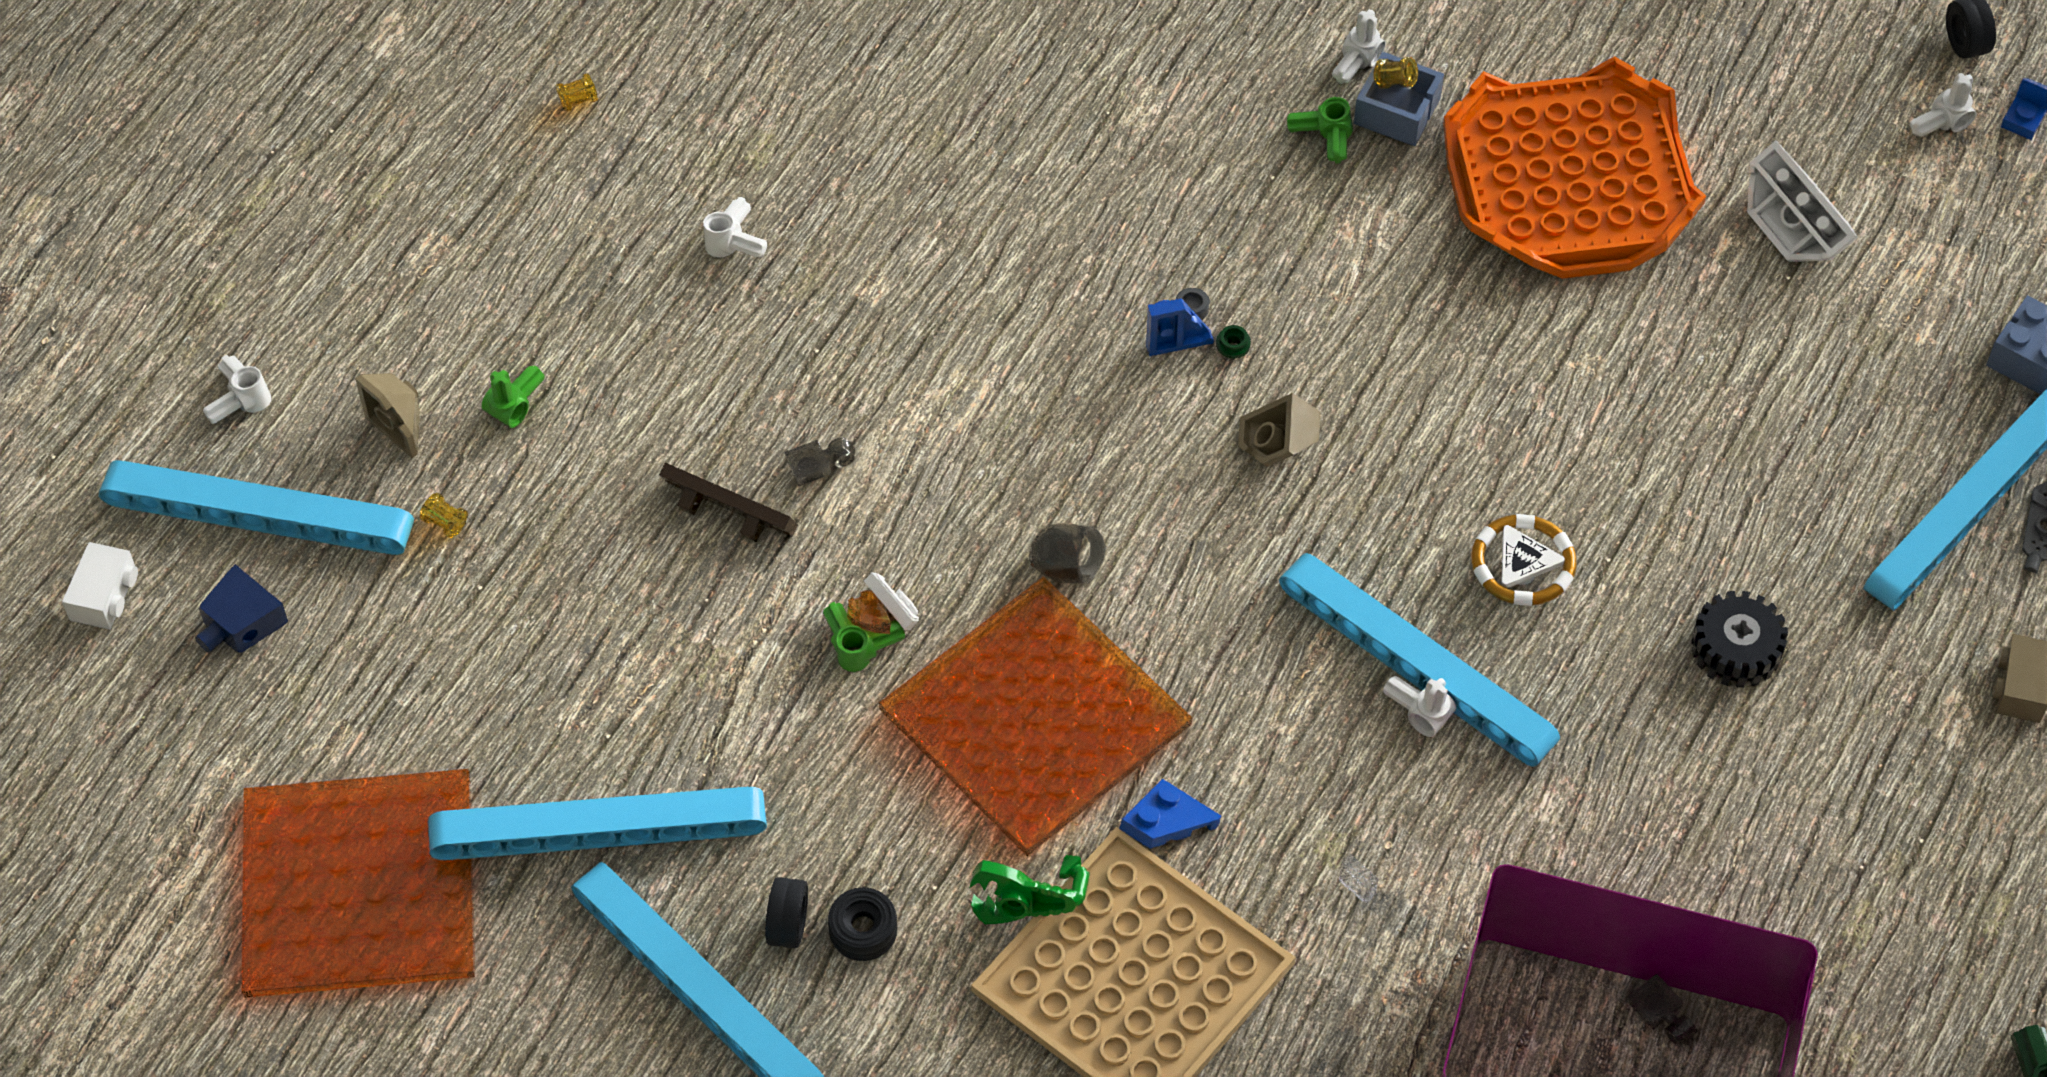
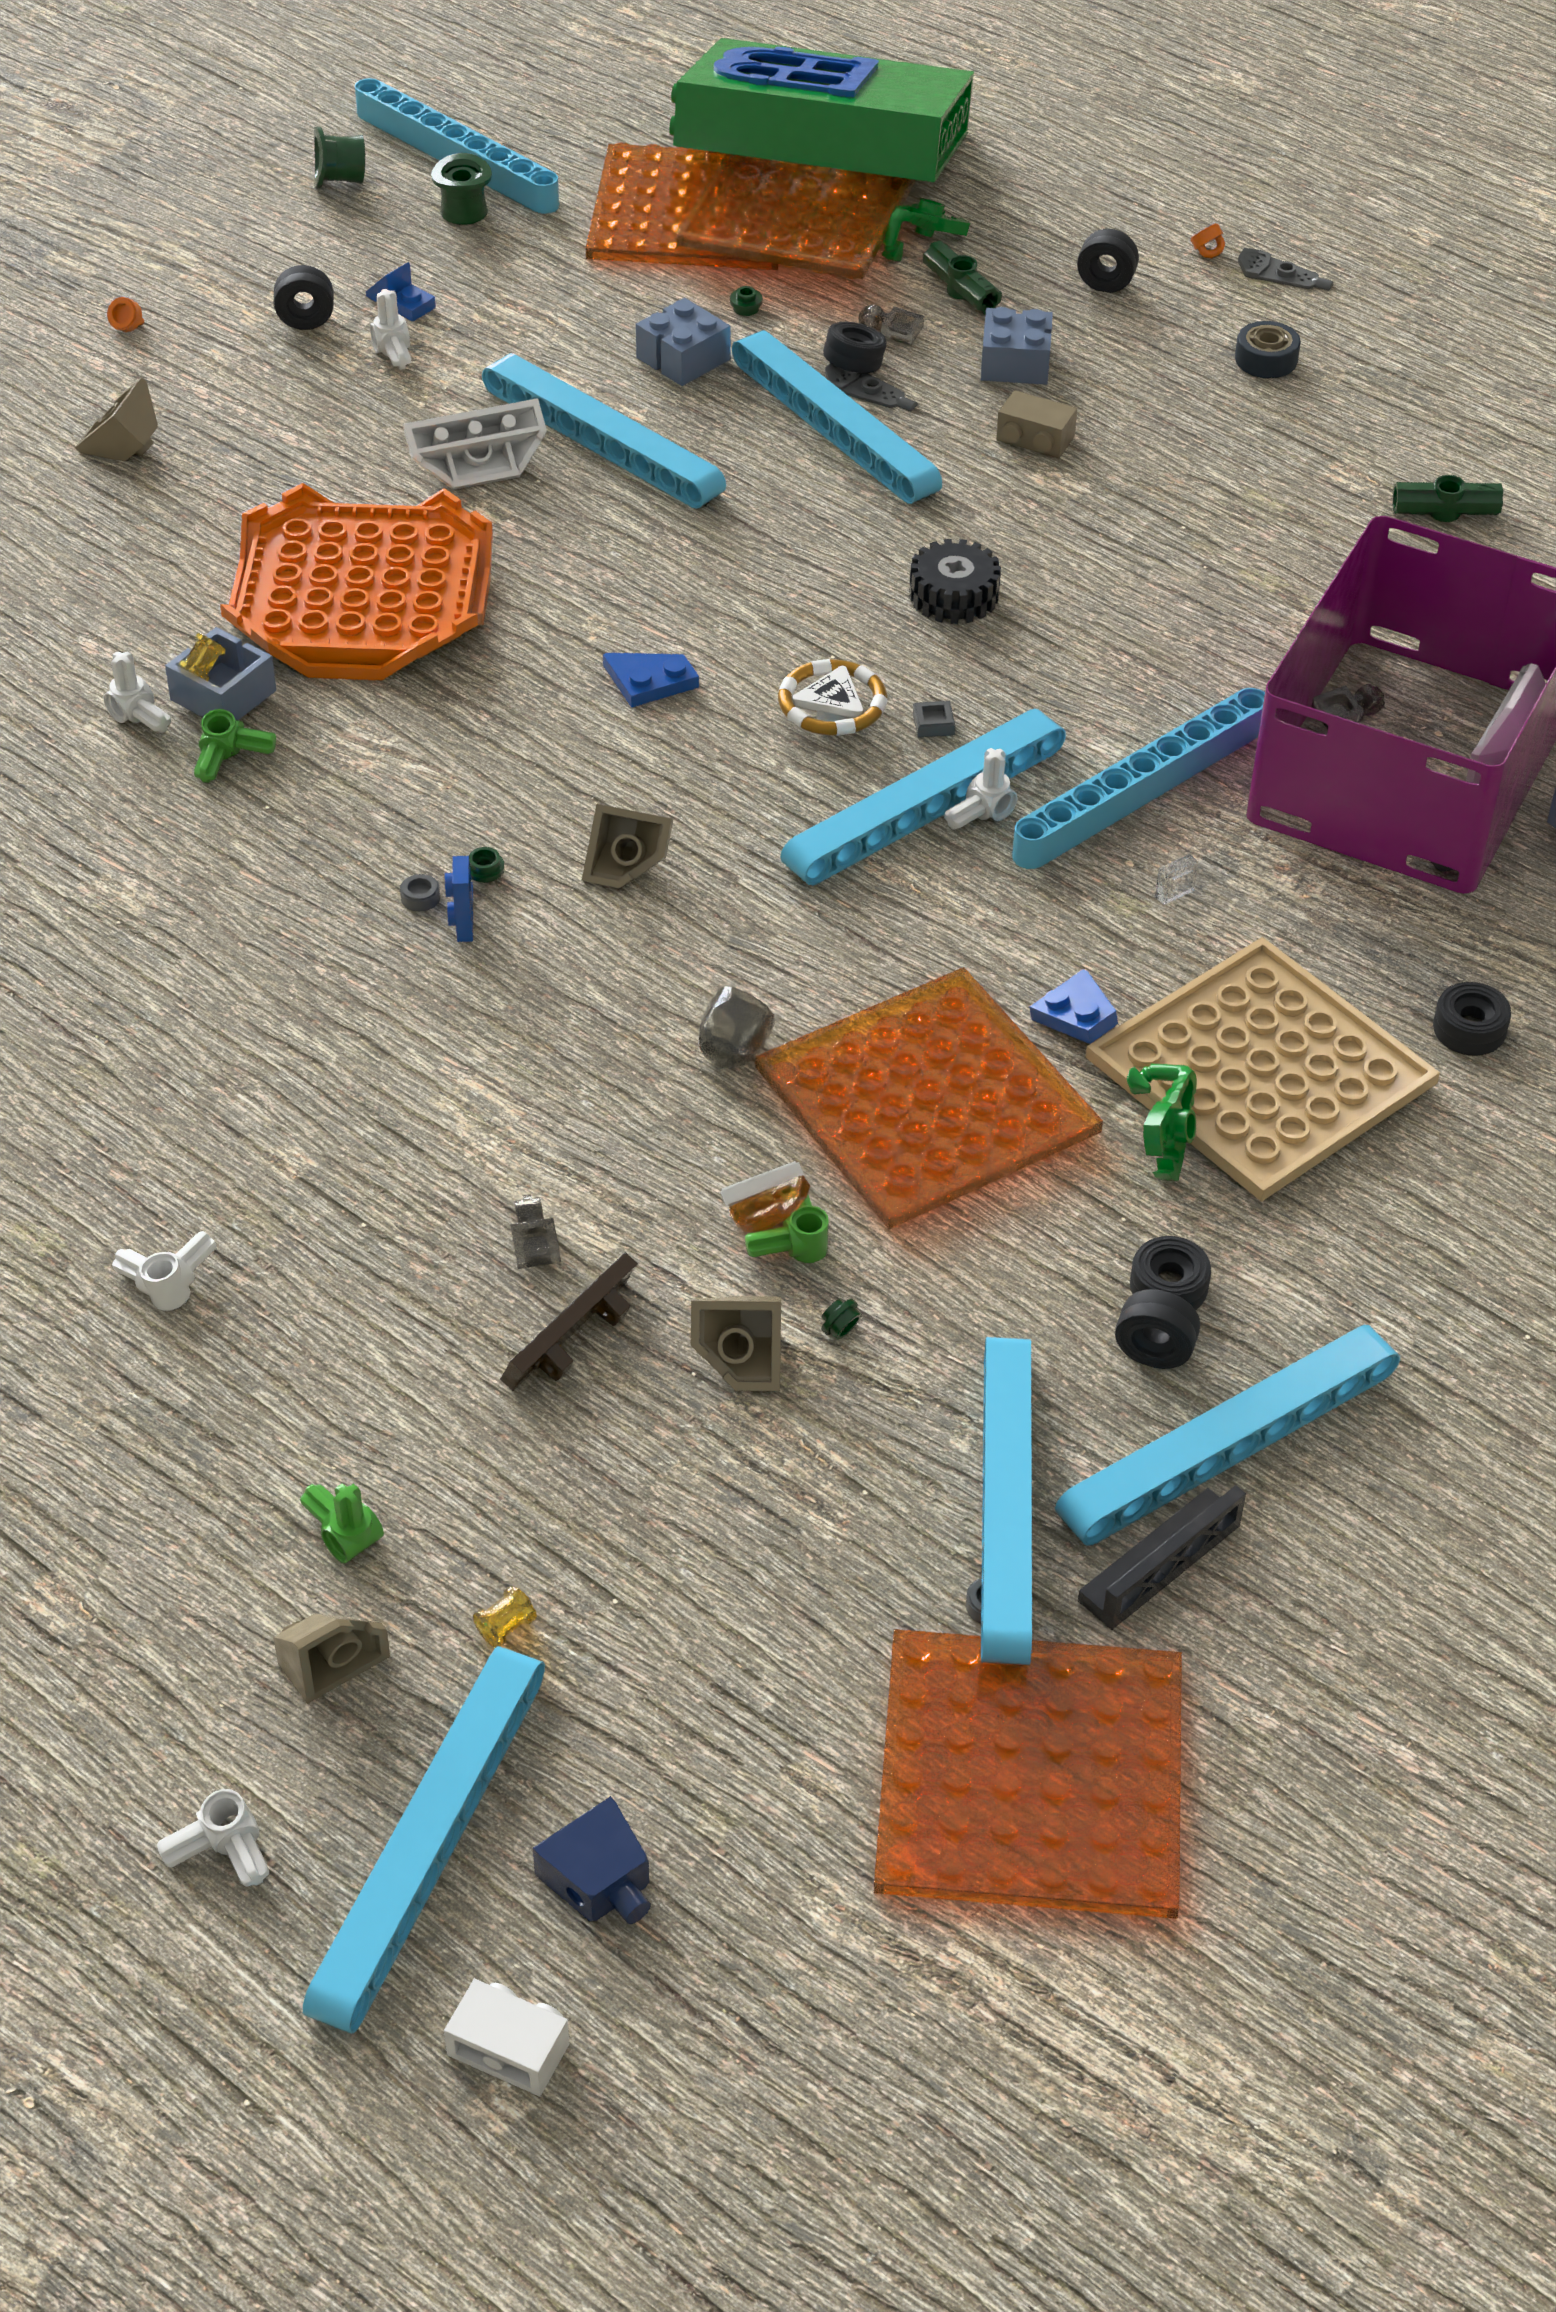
camera: 80 degrees left, 10 degrees down
(567, 948) = (1162, 1556): none -> black fence
(733, 620) = (740, 1339): none -> dark tan slope
(768, 686) = (840, 1318): none -> dark green plate
(1458, 798) = (1137, 779): none -> medium azure beam
(1525, 417) = (650, 676): none -> blue wing
(1538, 653) = (933, 719): none -> dark grey tile
(1870, 310) = (607, 431): none -> medium azure beam

